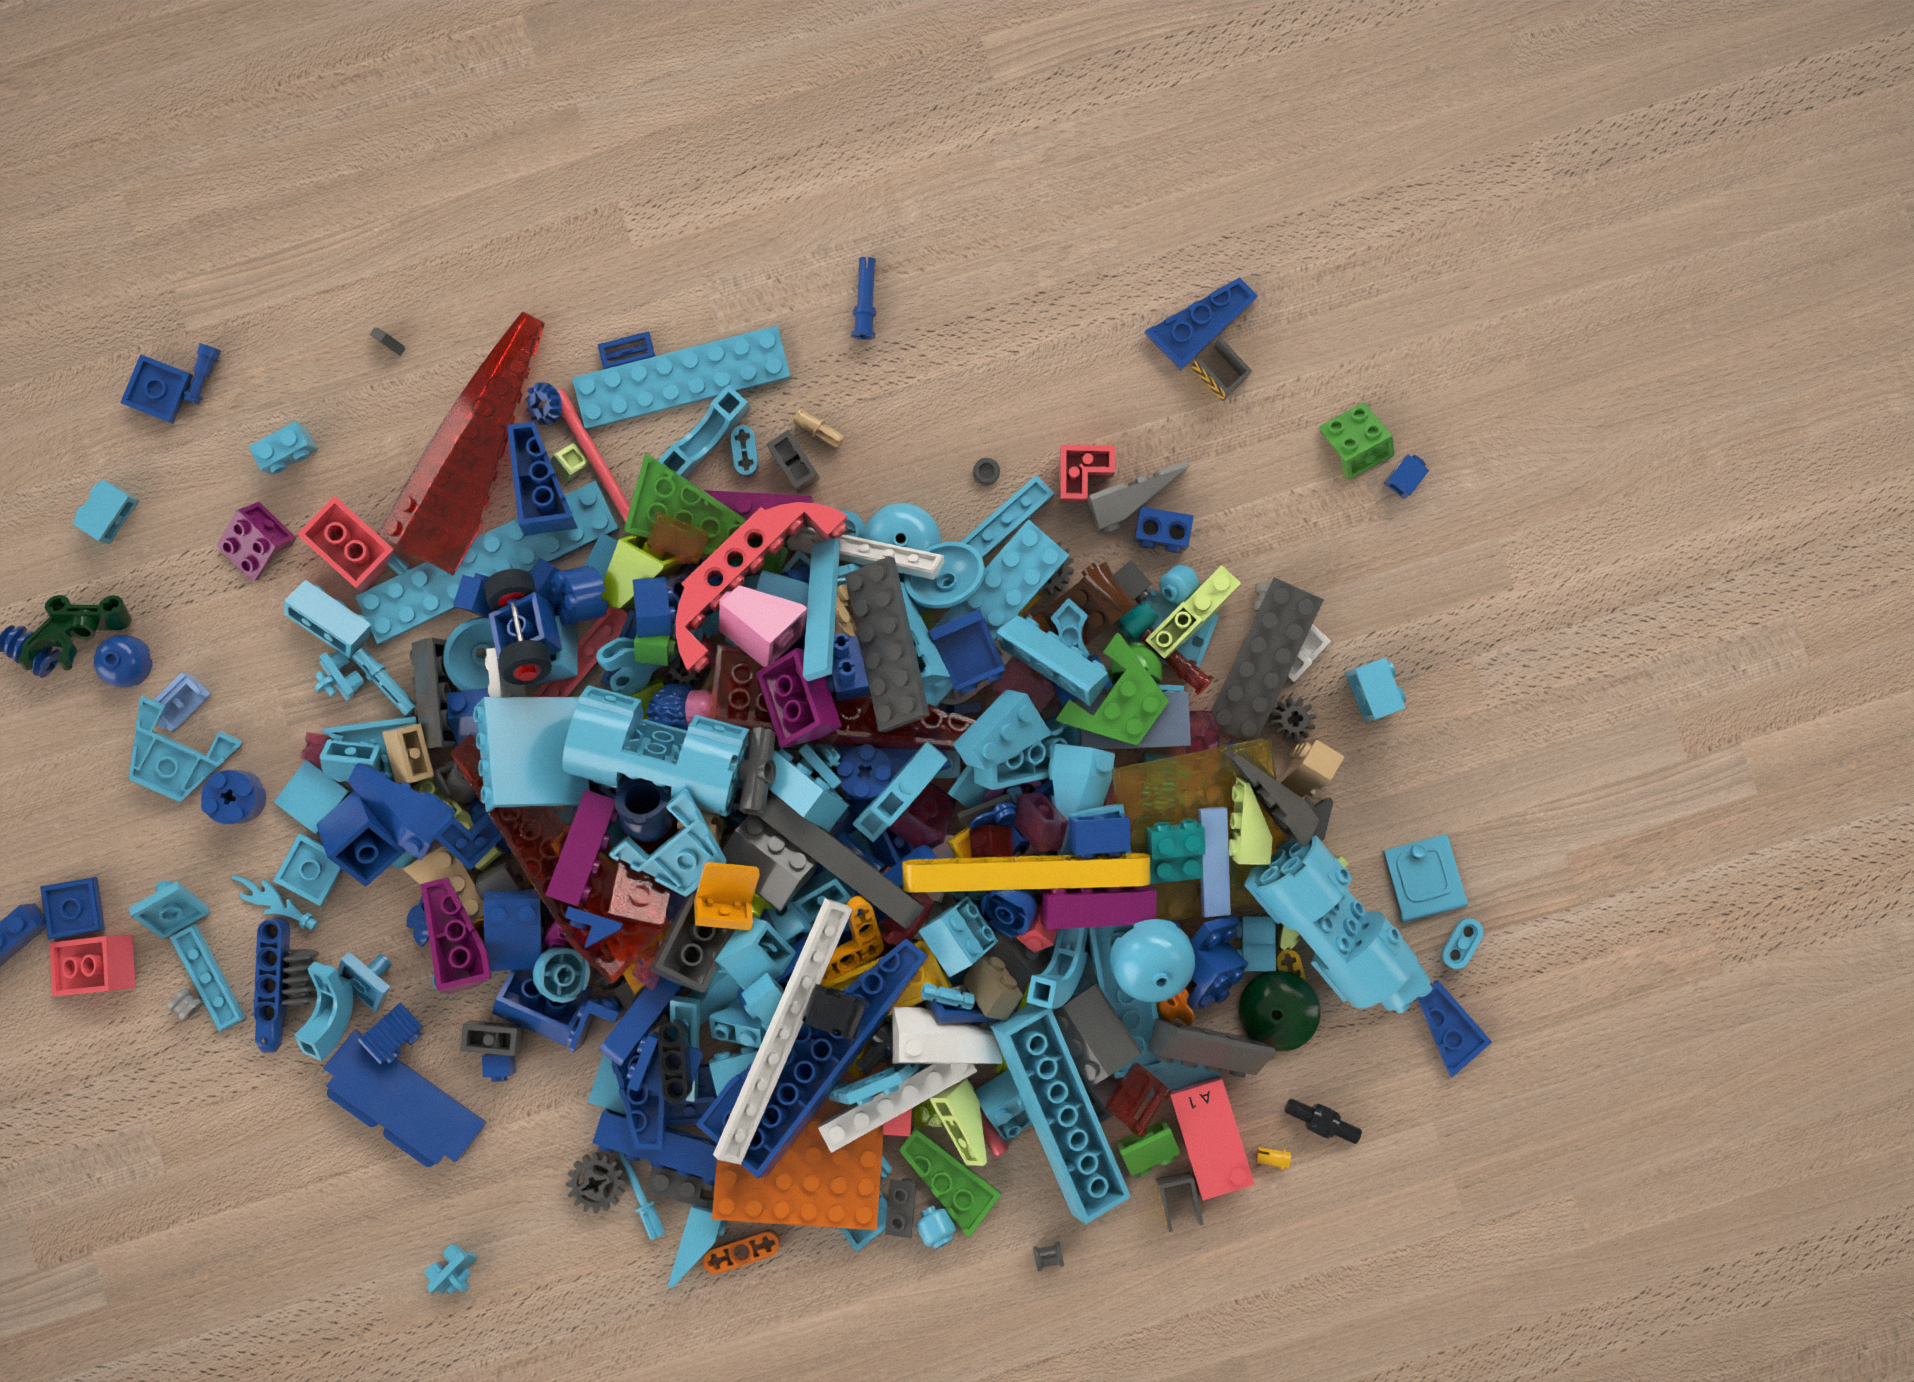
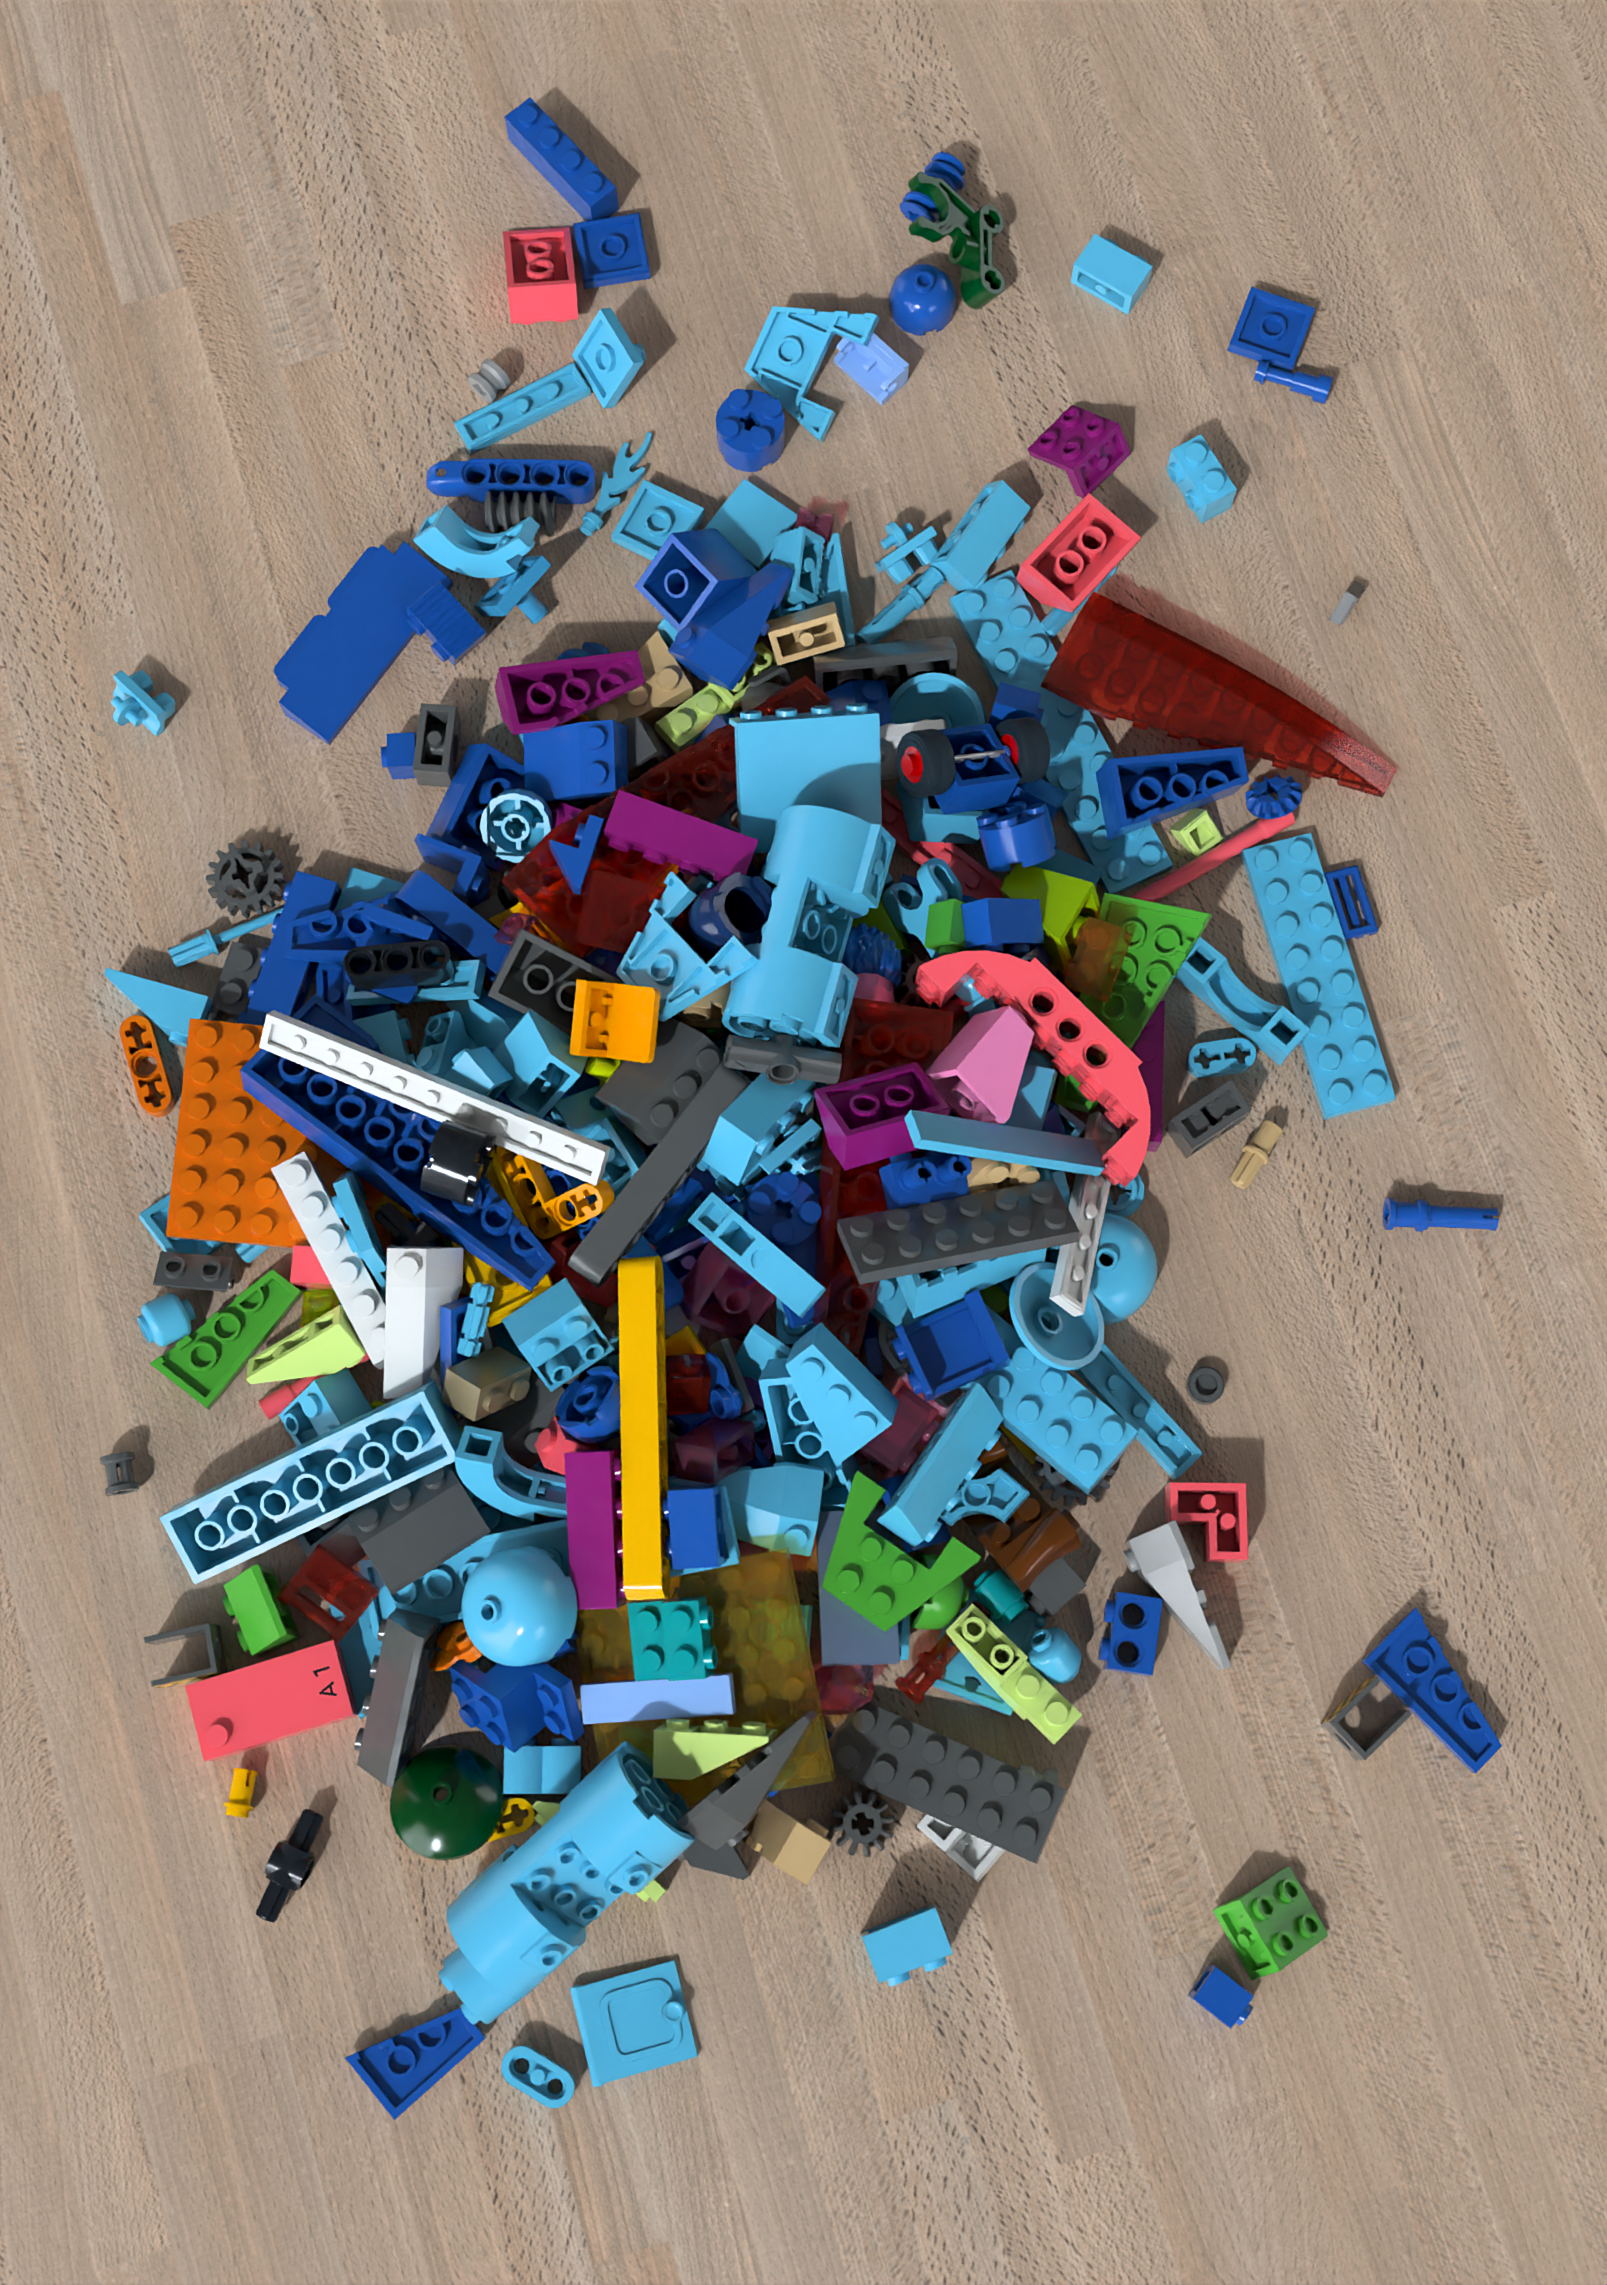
camera: 90 degrees right, 10 degrees down
(465, 844) = (687, 701): blue plate -> none

